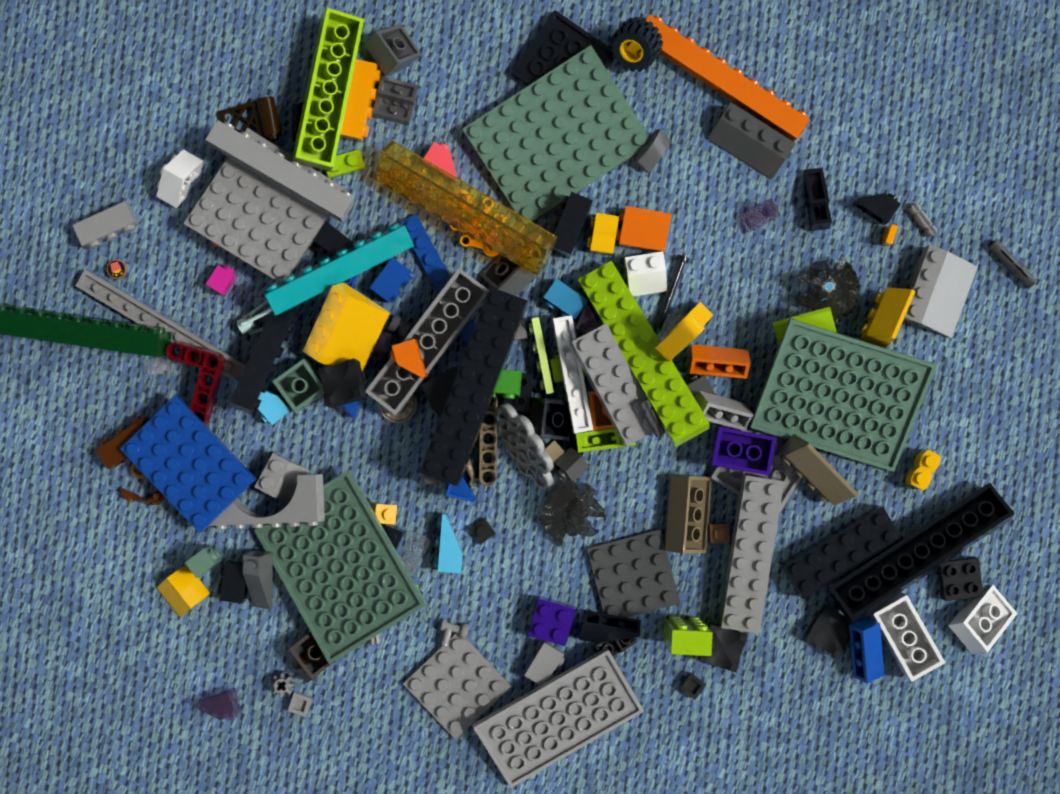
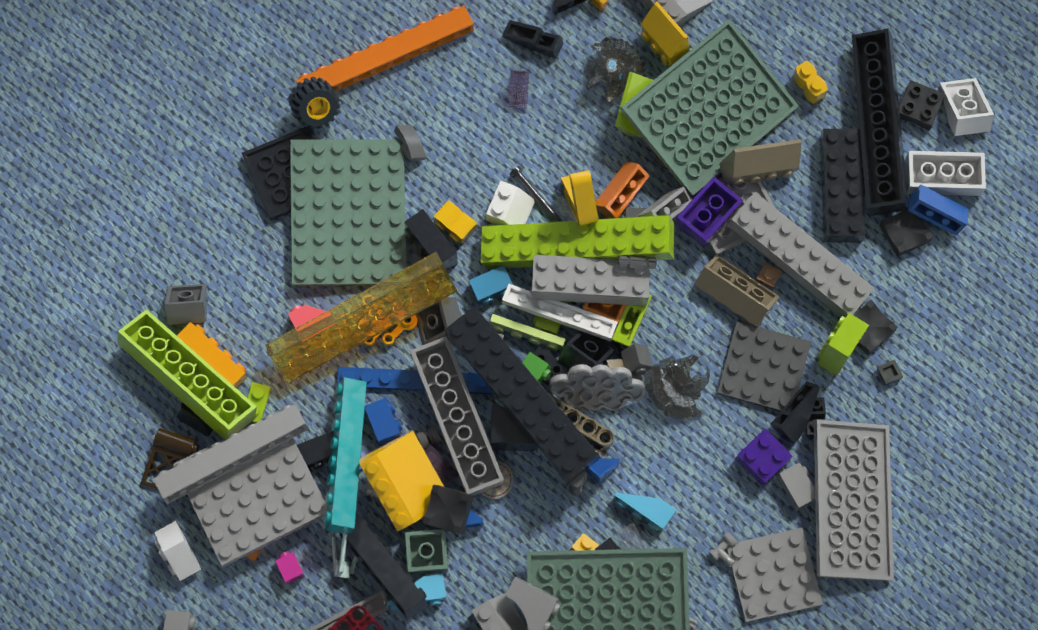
camera: 55 degrees left, 15 degrees down
(395, 100) = (230, 328): flat silver slope -> none
(409, 357) = (462, 435): orange slope -> none
(482, 531) = (649, 473): pearl dark grey plate -> none
(586, 321) = (520, 277): clear purple slope -> none
(643, 229) = (471, 187): orange brick -> none
(751, 141) = (451, 61): dark grey slope -> none

